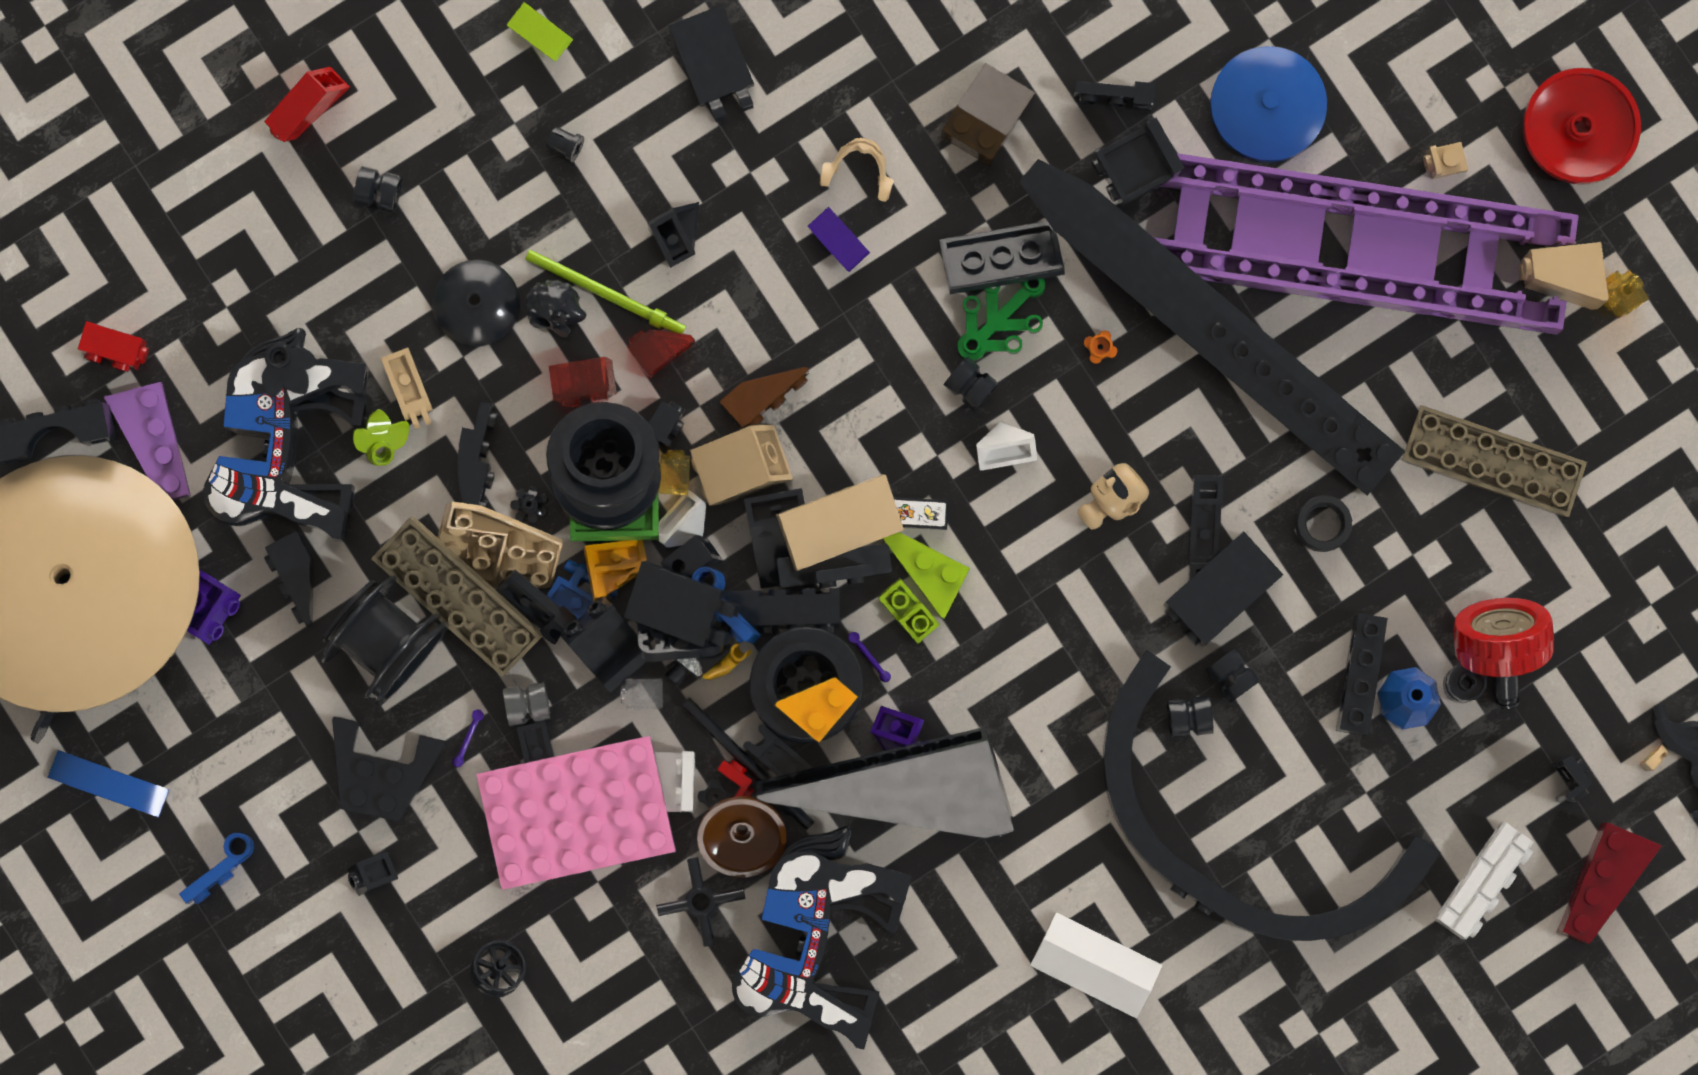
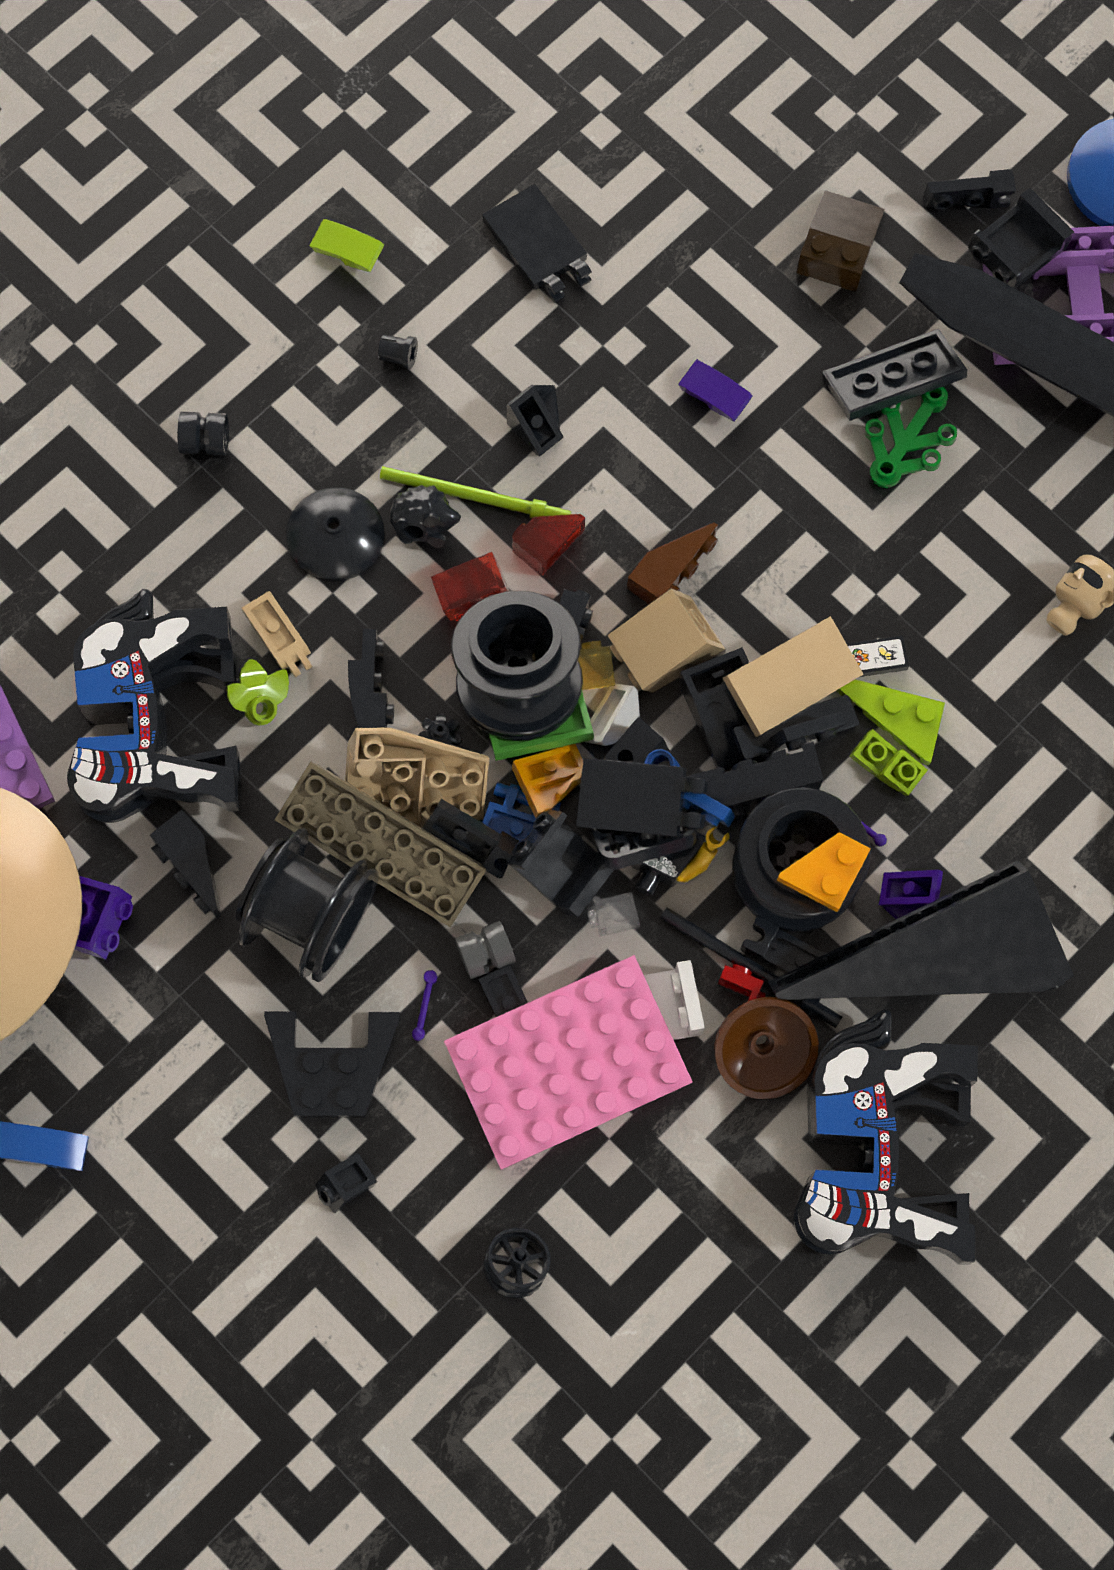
camera: 10 degrees left, 10 degrees down
(220, 873) = (166, 1219): blue plate -> none
(290, 372) = (142, 631): black plate -> none
(305, 103) = (106, 361): red slope -> none
(687, 905) = (721, 1141): black bar -> none
(714, 788) = (720, 1002): black plate -> none
(864, 146) = (687, 325): tan helmet -> none
(971, 384) = (895, 507): black wheel -> none
(1006, 447) = (951, 568): white slope -> none
(1104, 339) = (1026, 438): orange plate -> none

